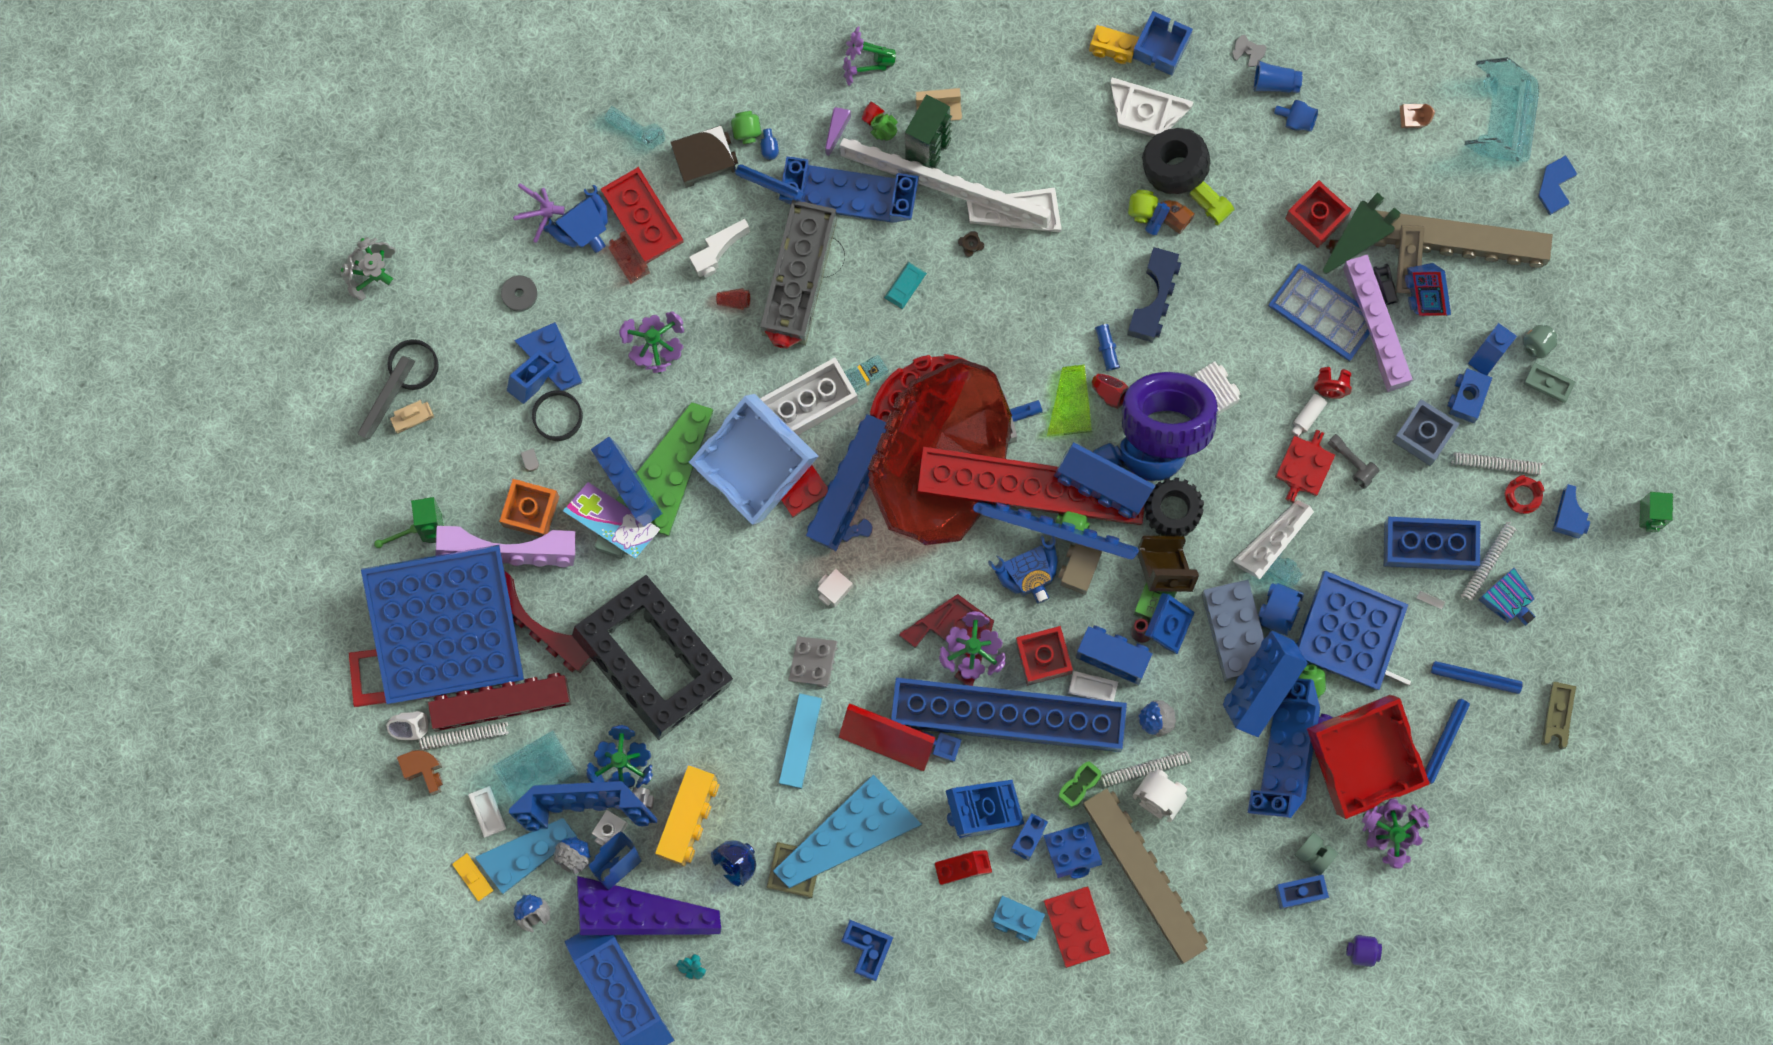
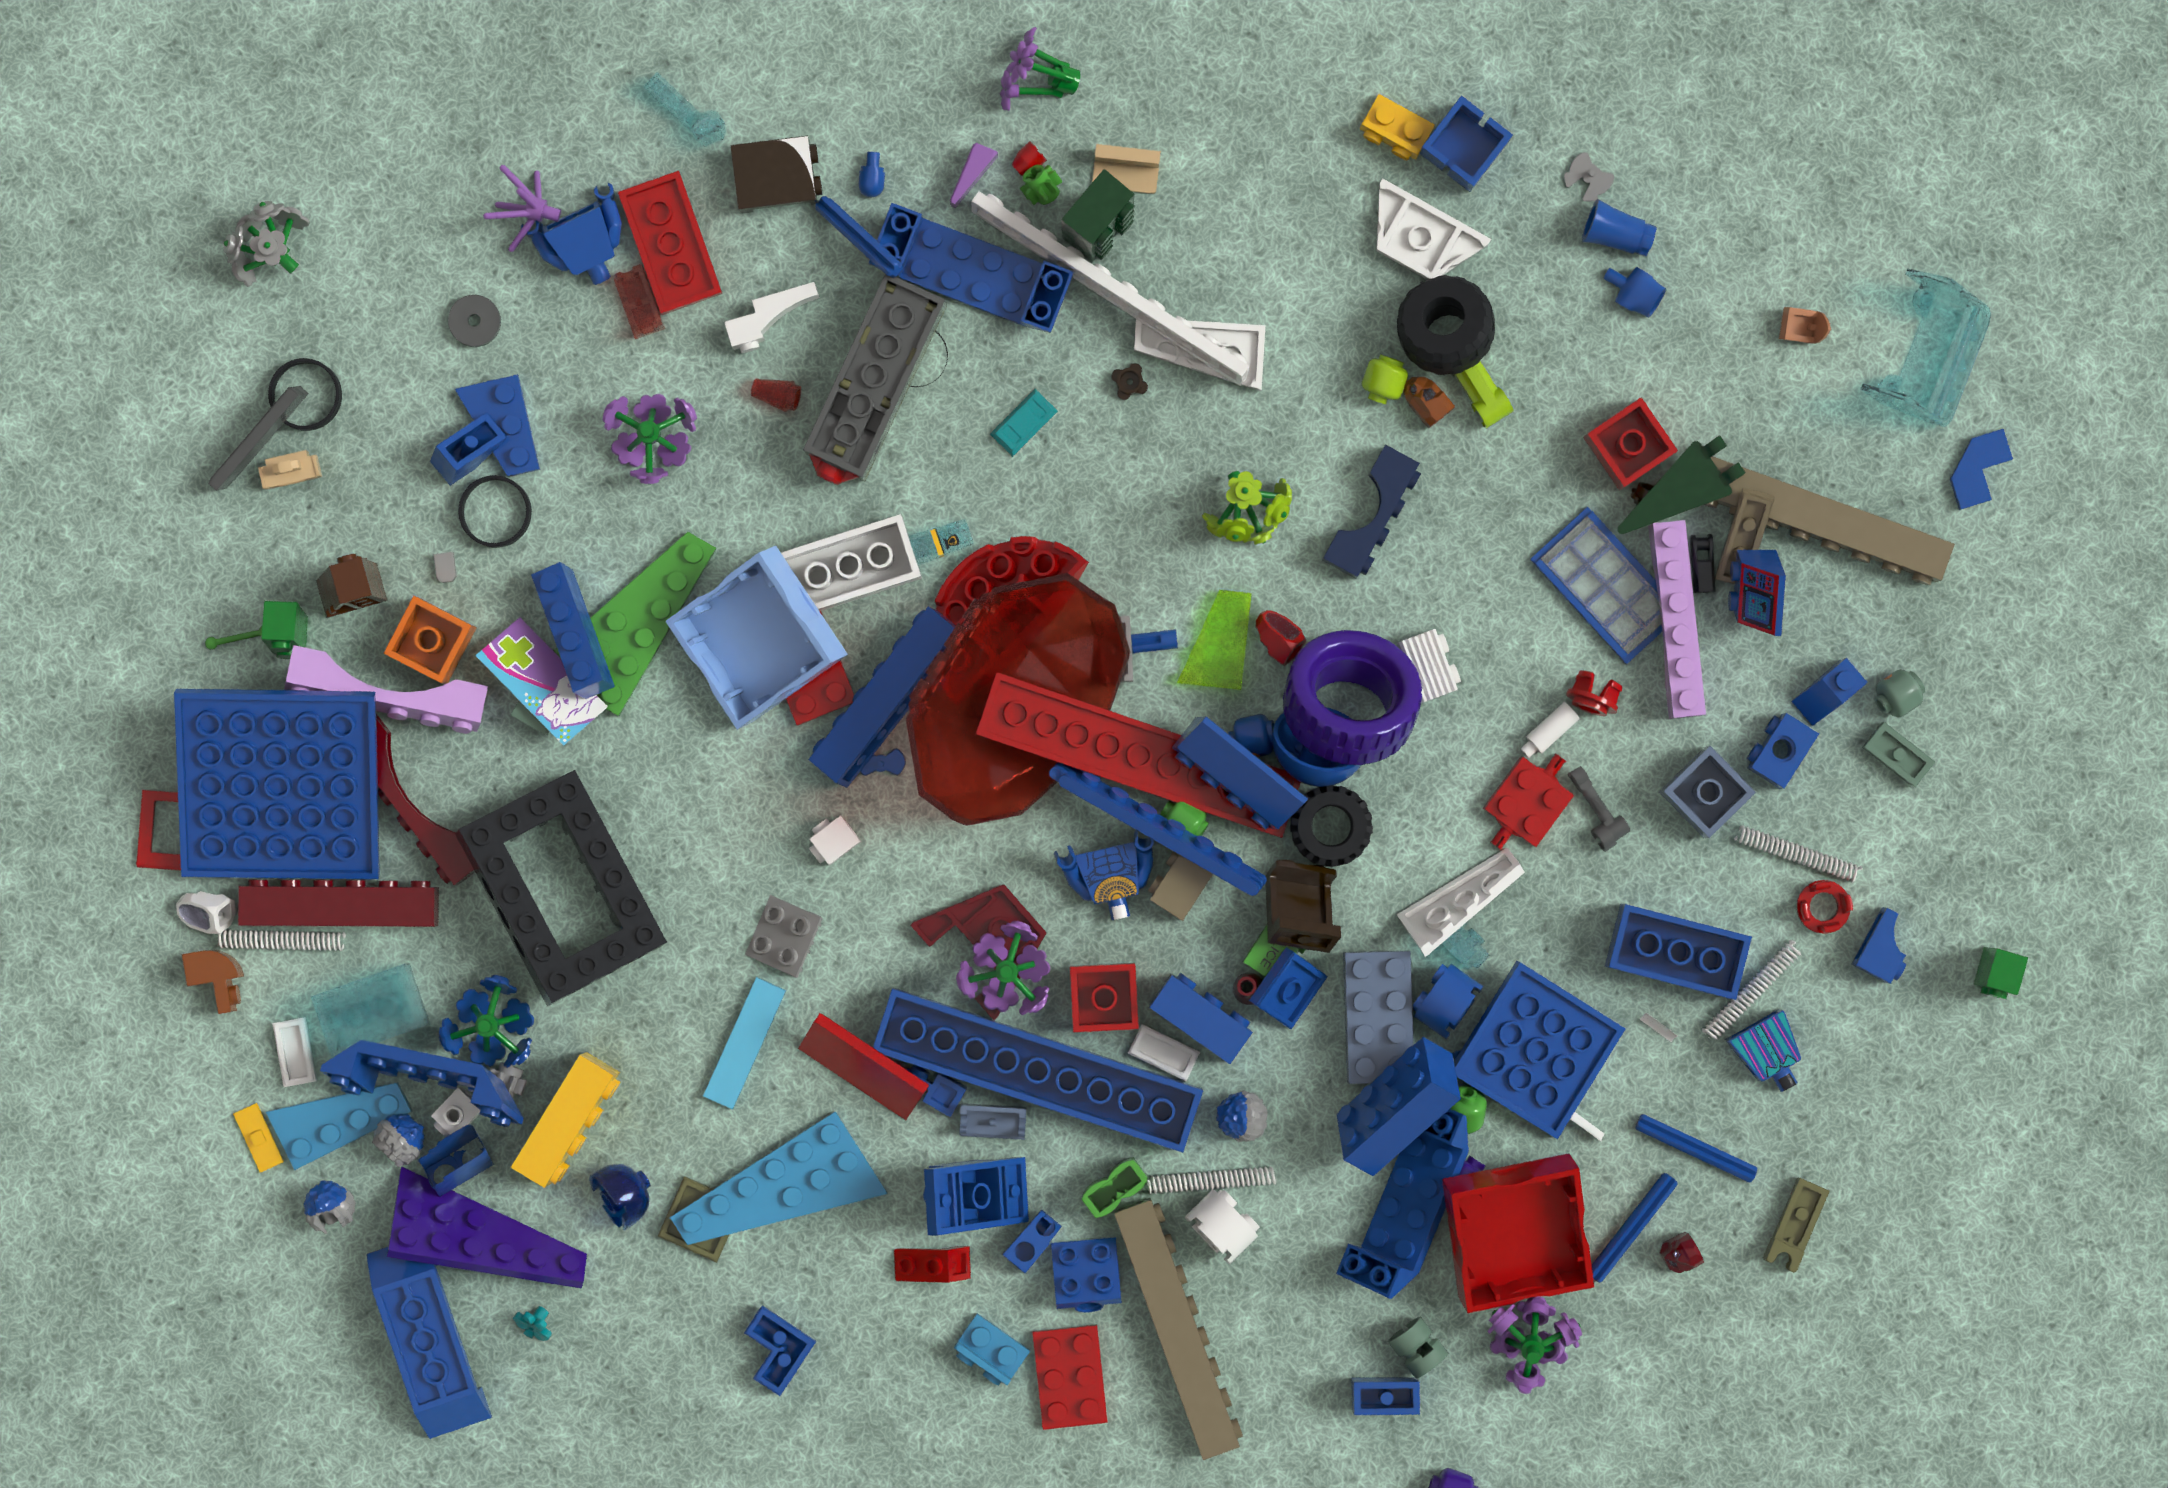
camera: 10 degrees right, 10 degrees up
(466, 482) = (350, 585): none -> reddish brown wedge
(746, 127) = (844, 143): bright green head -> none
(984, 758) = (992, 1121): none -> sand blue hinge
(1065, 294) = (1242, 495): none -> lime plant
(1107, 347) = (1289, 574): blue pin -> none
(1158, 218) = (1401, 403): blue piece -> none
(1484, 750) = (1681, 1253): none -> dark red rock

